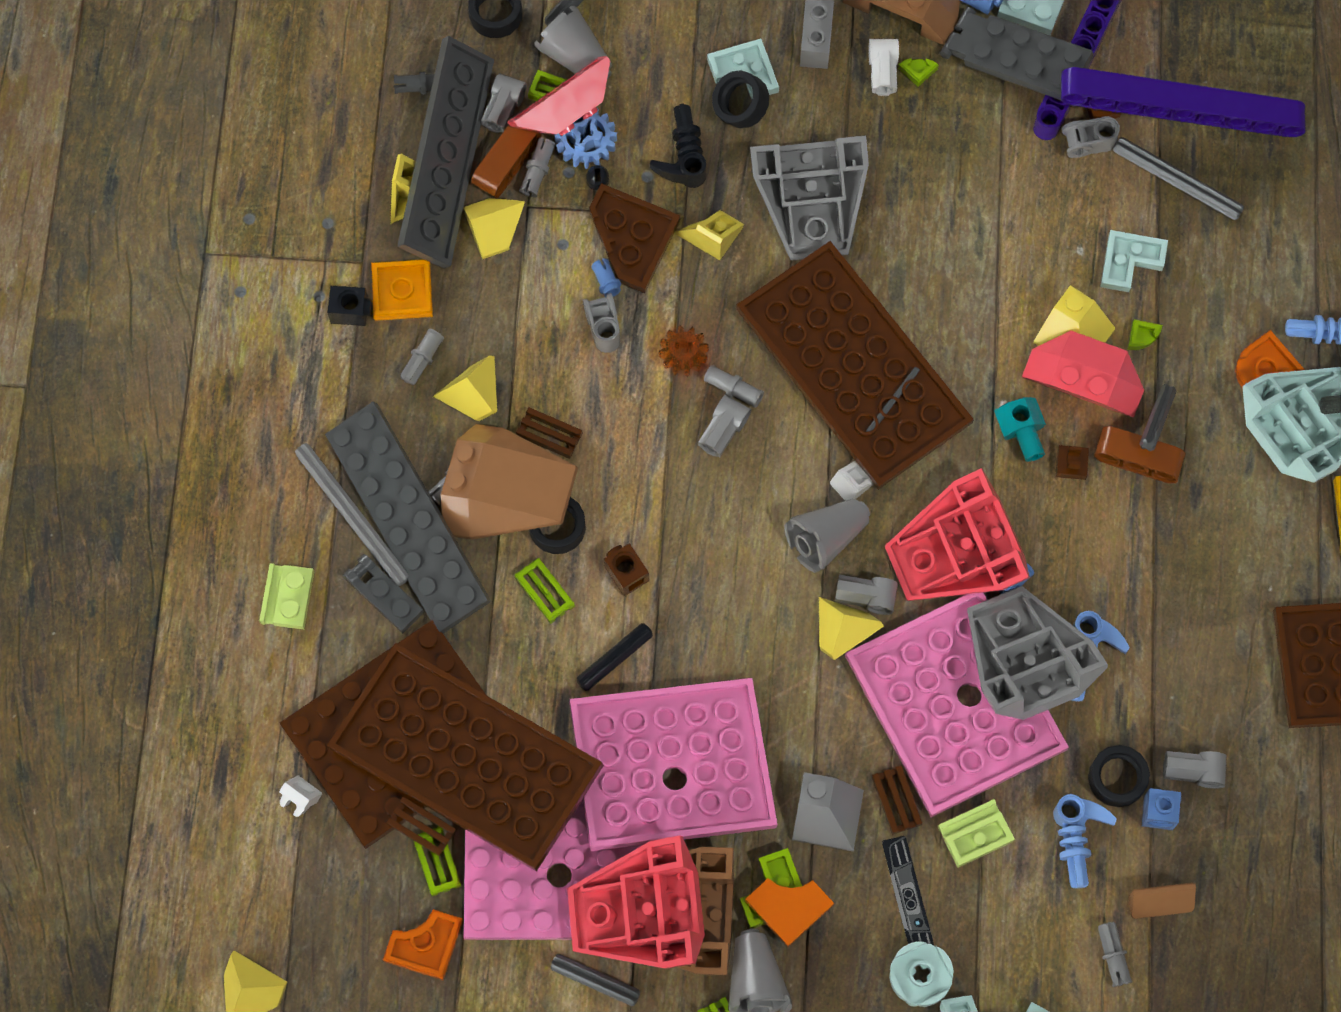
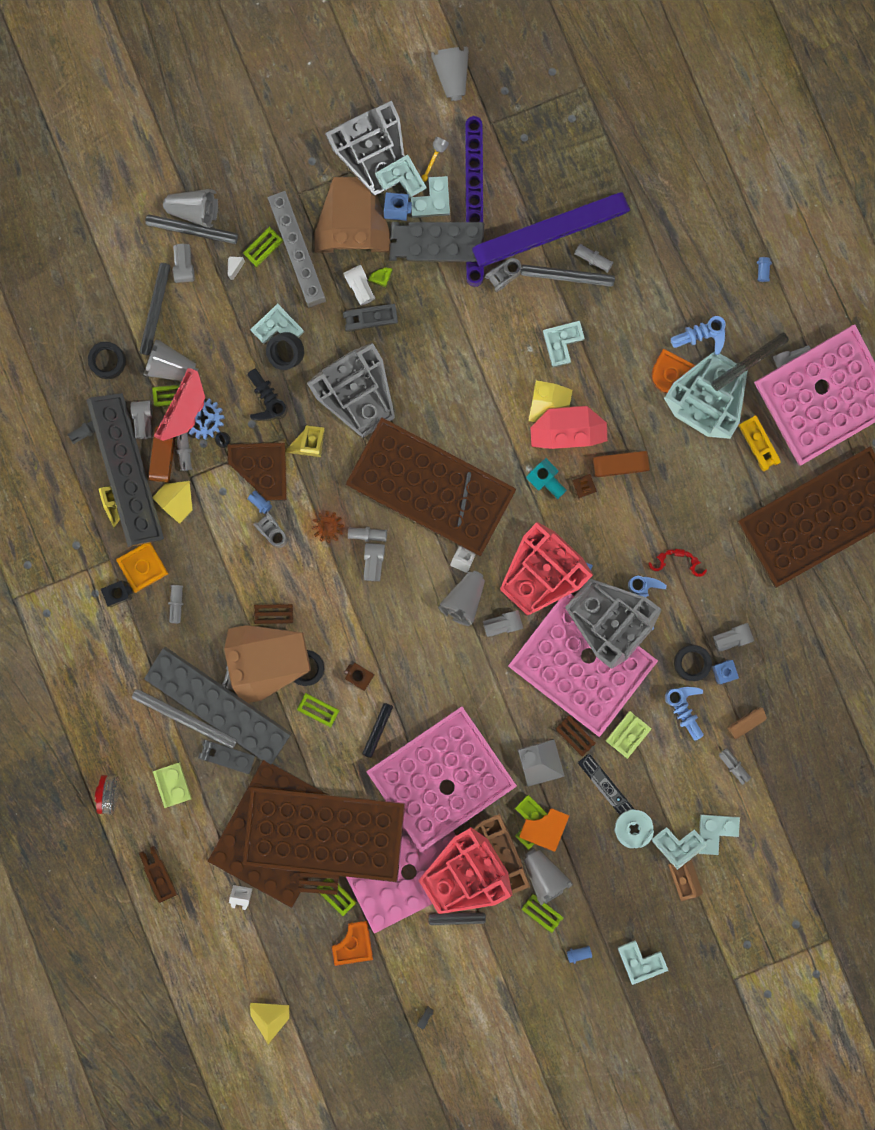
camera: 25 degrees left, 15 degrees up
(190, 560) = (107, 795): none -> clear piece
(199, 711) = (158, 876): none -> reddish brown hinge
(473, 390) = (216, 610): light yellow slope -> none
(843, 627) = (499, 650): light yellow slope -> none
(878, 112) = (371, 317): none -> dark grey plate
(1143, 334) = (590, 386): lime tile -> none
(1157, 417) = (622, 437): dark grey axle -> none
(1168, 614) = (680, 553): none -> red piece
(1225, 171) = (594, 258): none -> light grey pin

